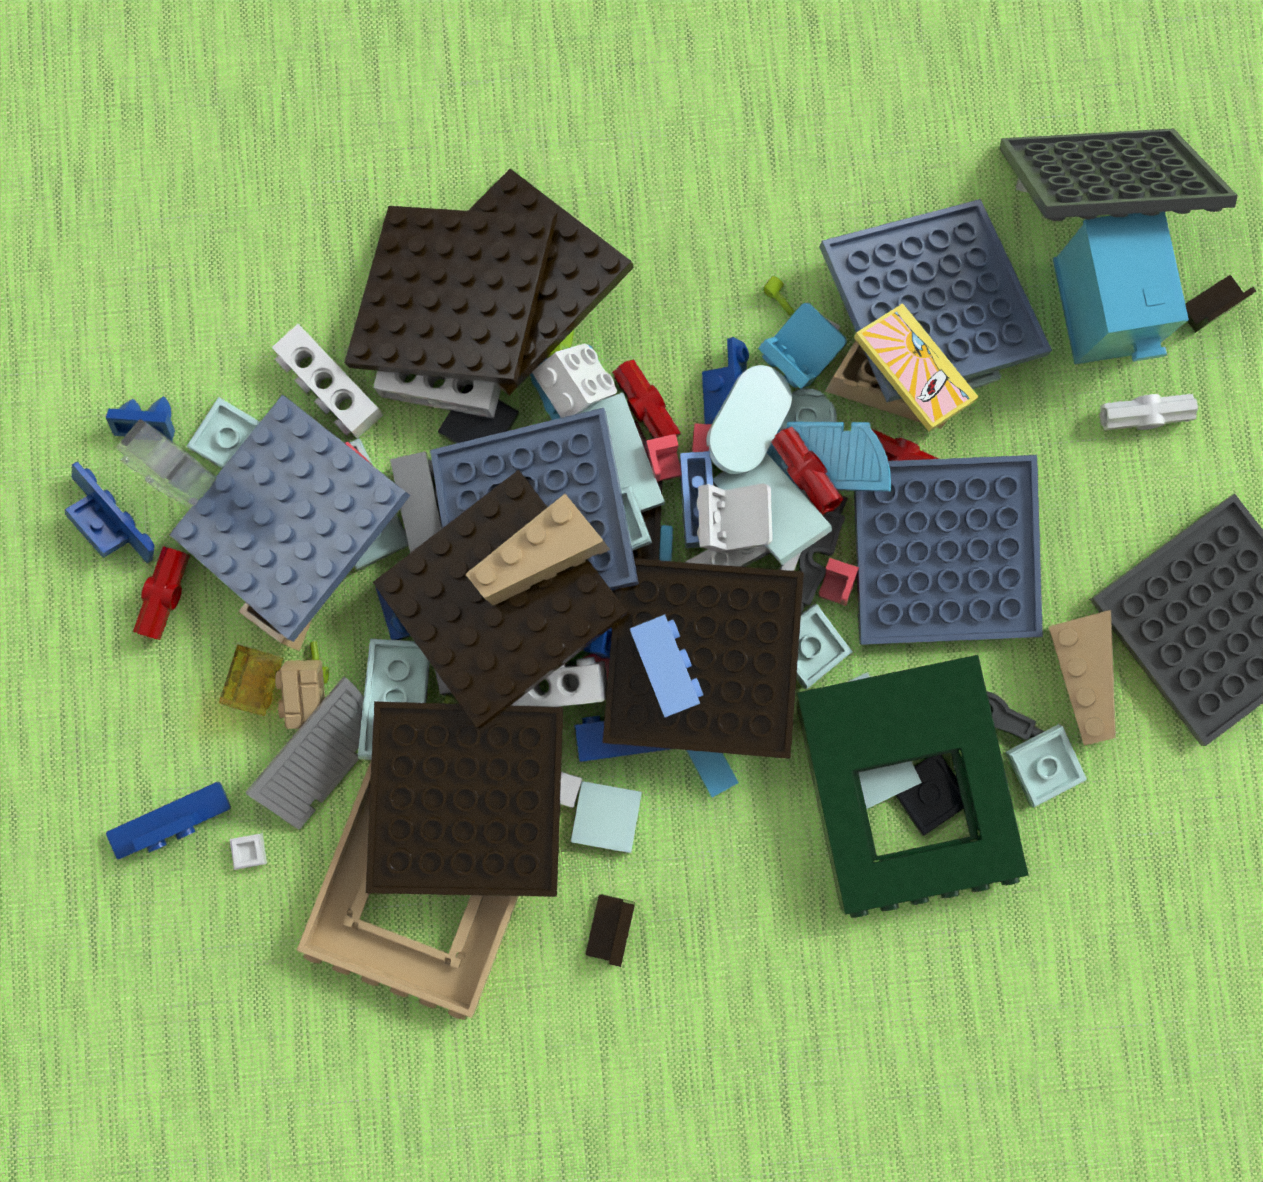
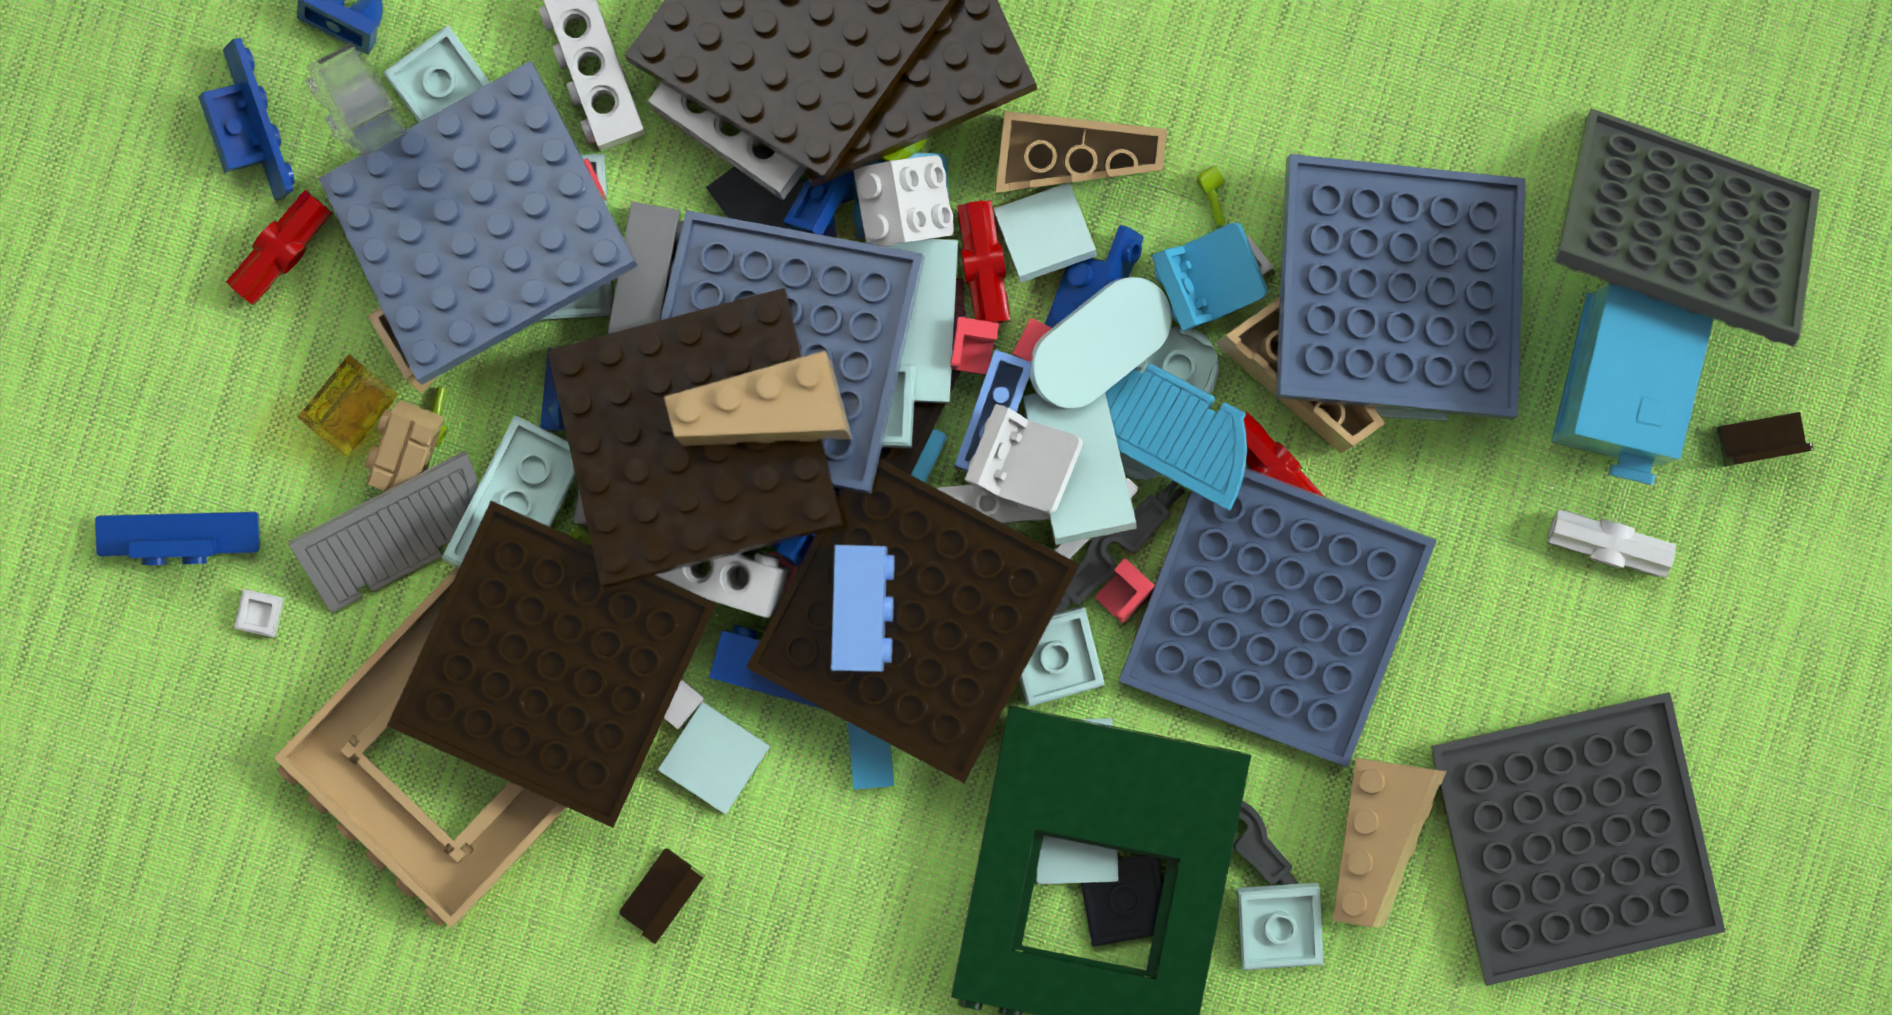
camera: 20 degrees right, 5 degrees up
(518, 406) = (816, 206): none -> blue tile
(672, 302) = (1066, 150): none -> tan wedge
(679, 365) = (1045, 232): none -> light aqua tile
(807, 470) = (1142, 438): red piece -> none
(915, 367) = (1329, 369): tile -> none

